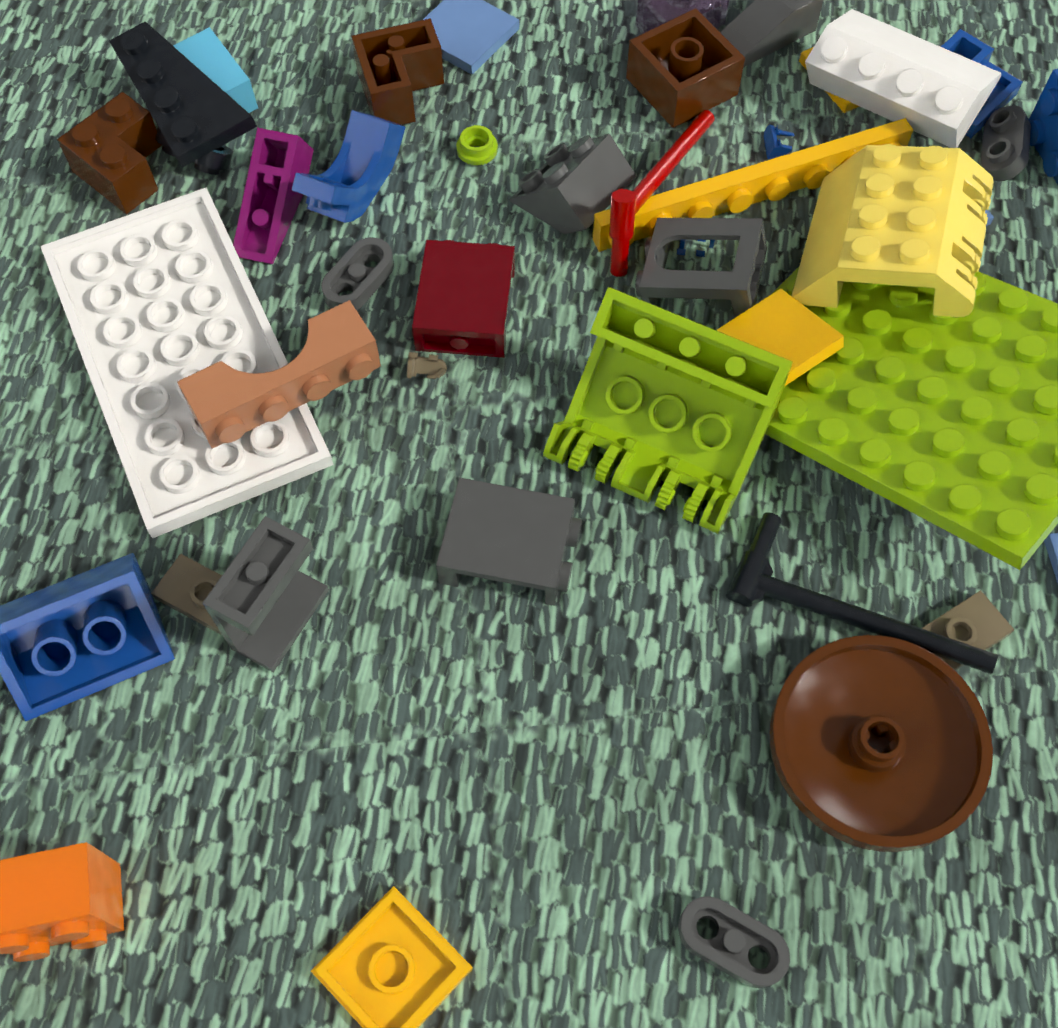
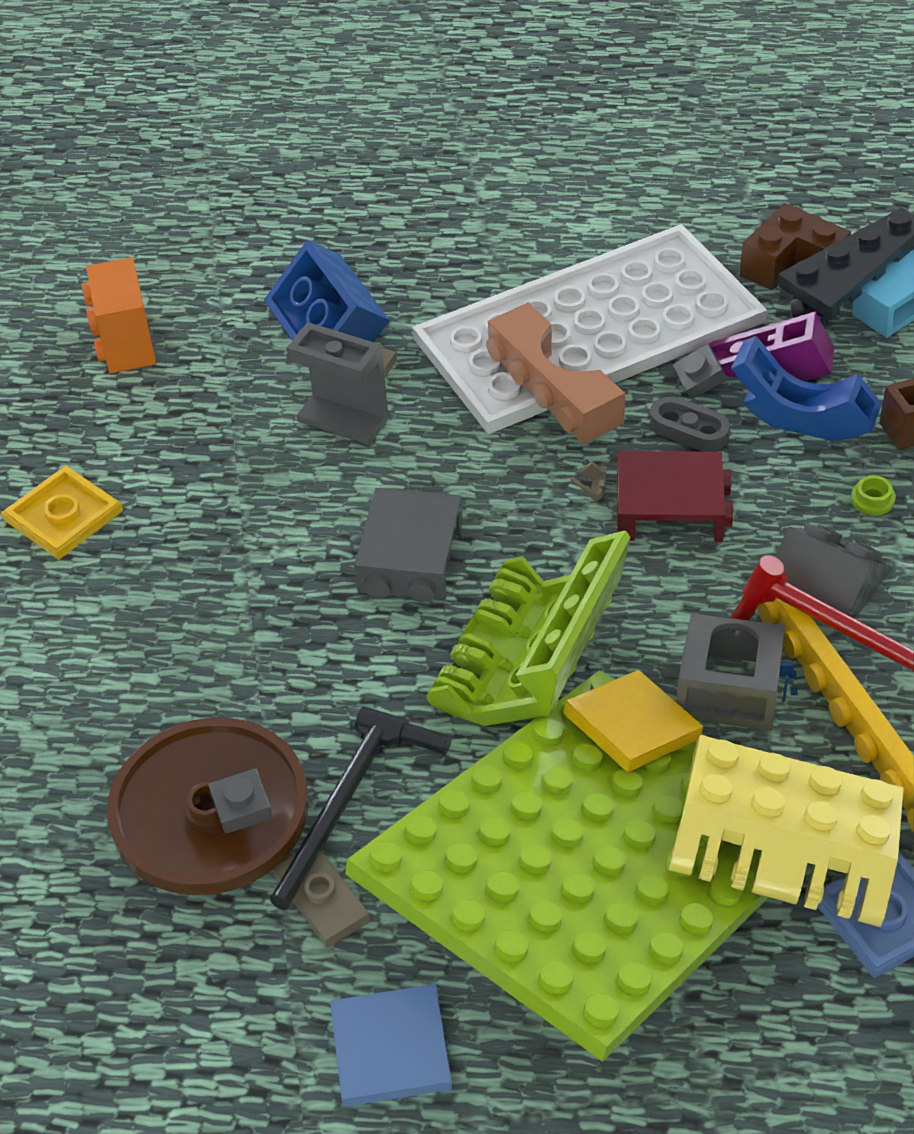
camera: 90 degrees right, 15 degrees down
(281, 257) = (699, 371): none -> dark grey plate
(732, 942) = (48, 710): dark grey plate -> none
(894, 696) = (240, 801): none -> dark grey plate

